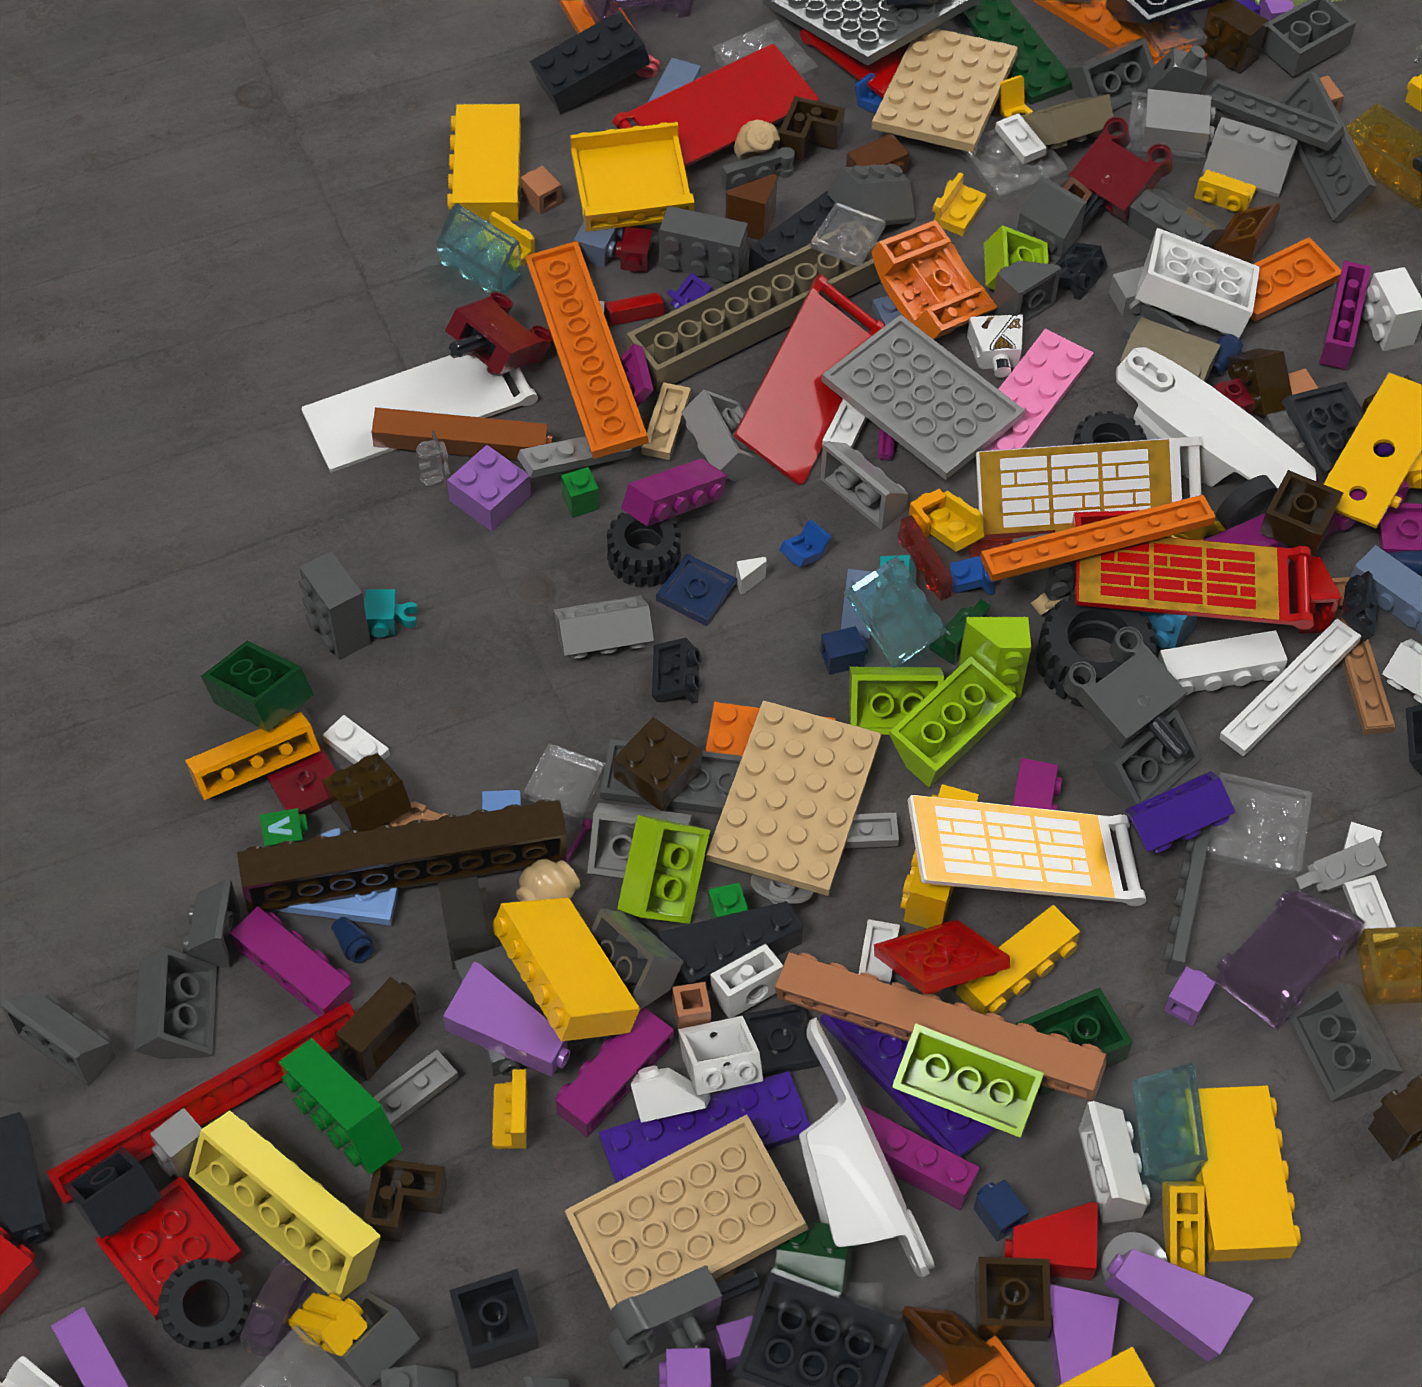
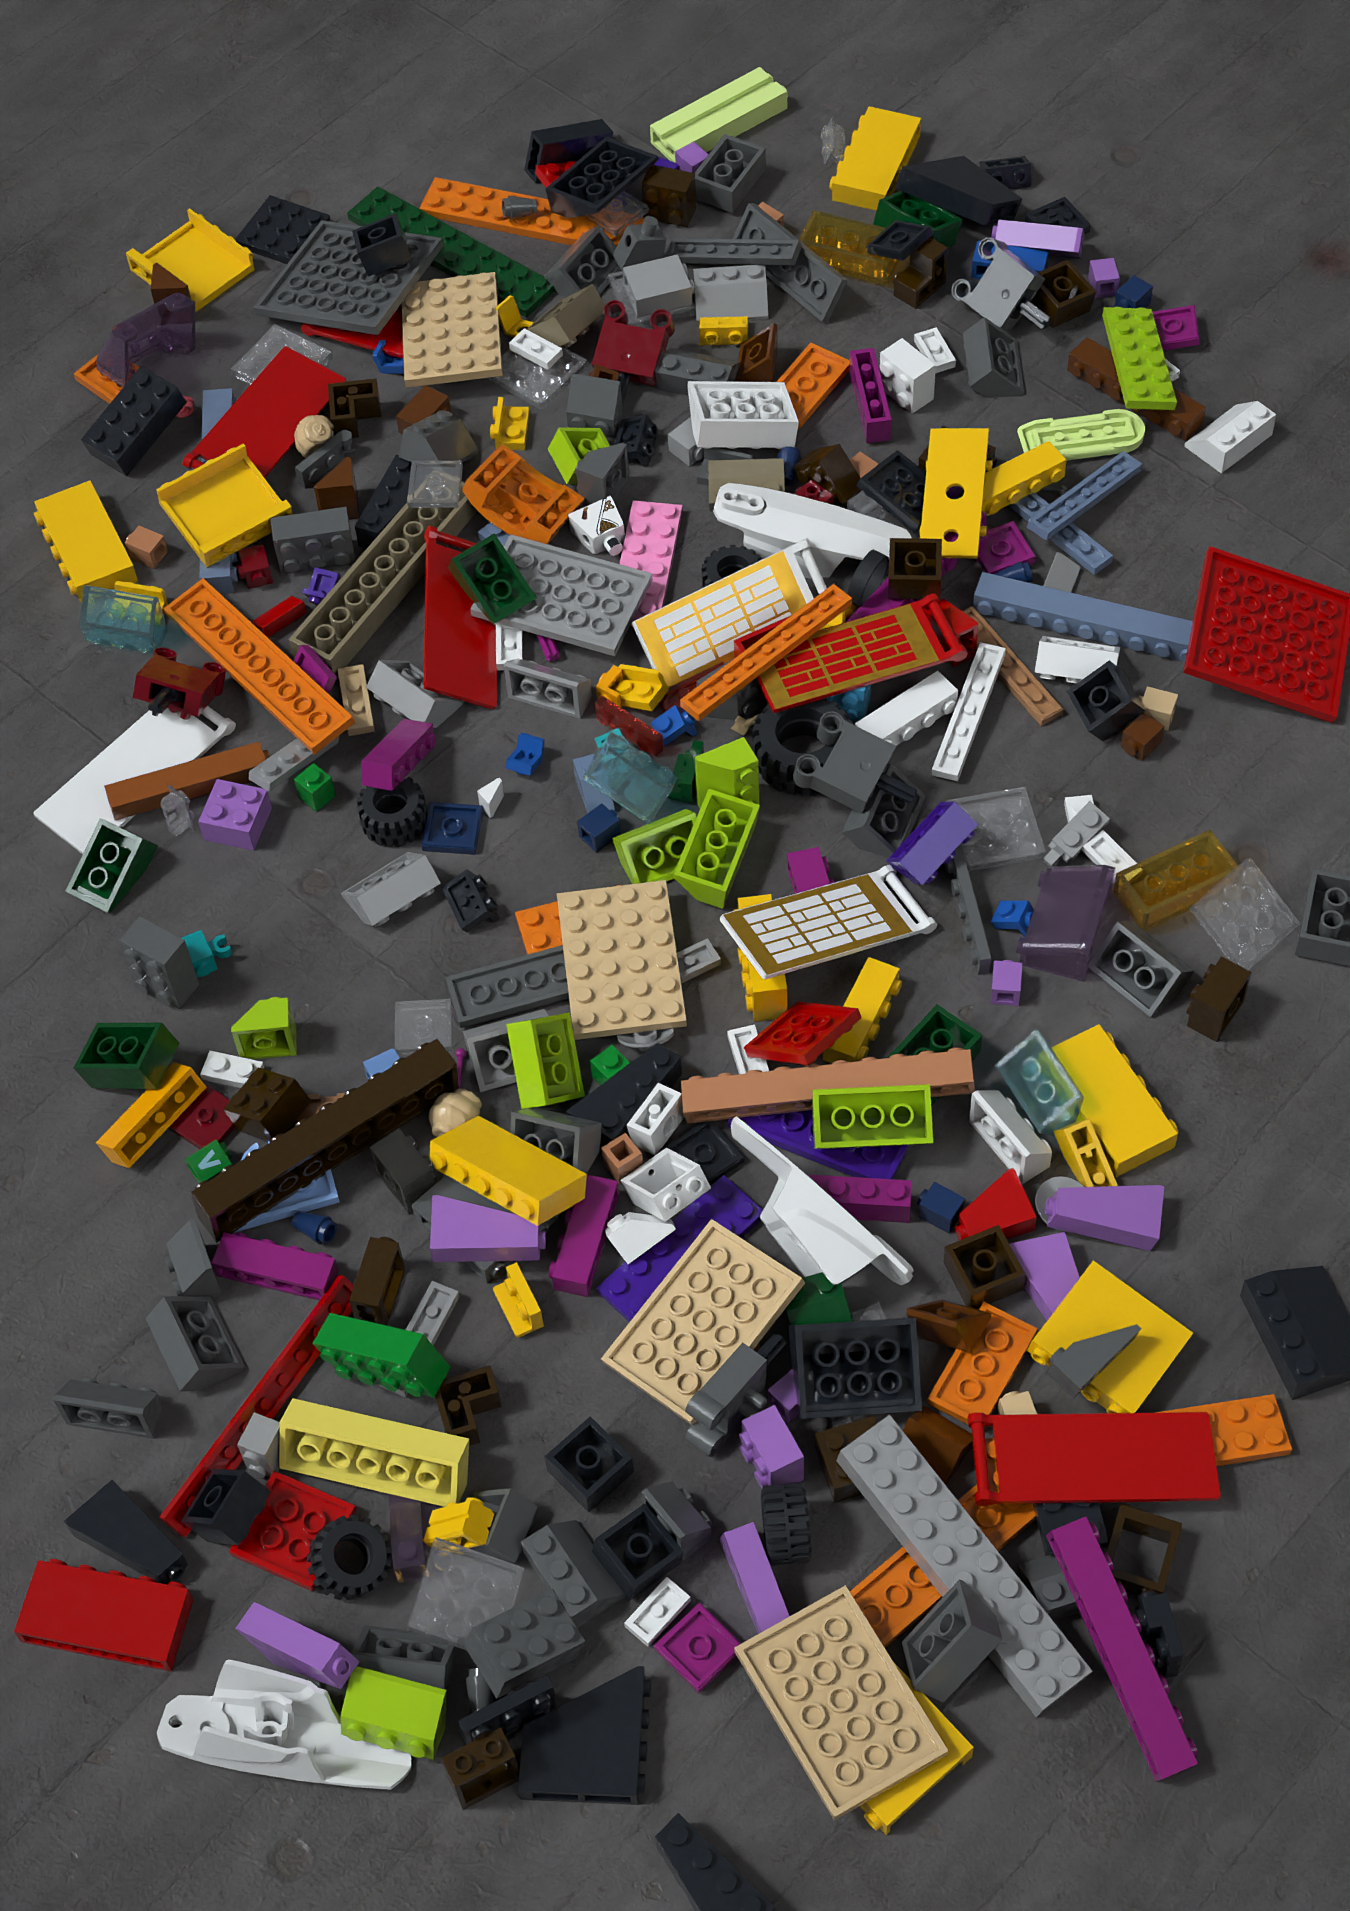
camera: 20 degrees left, 0 degrees up
(345, 489) = (110, 865): none -> dark green slope
(405, 718) = (266, 1030): none -> lime slope
(657, 764) = (497, 979): dark brown brick -> none
(856, 352) = (491, 579): none -> dark green slope
(1232, 925) = (1013, 915): none -> blue bracket
(1360, 605) = (993, 624): black bracket -> none

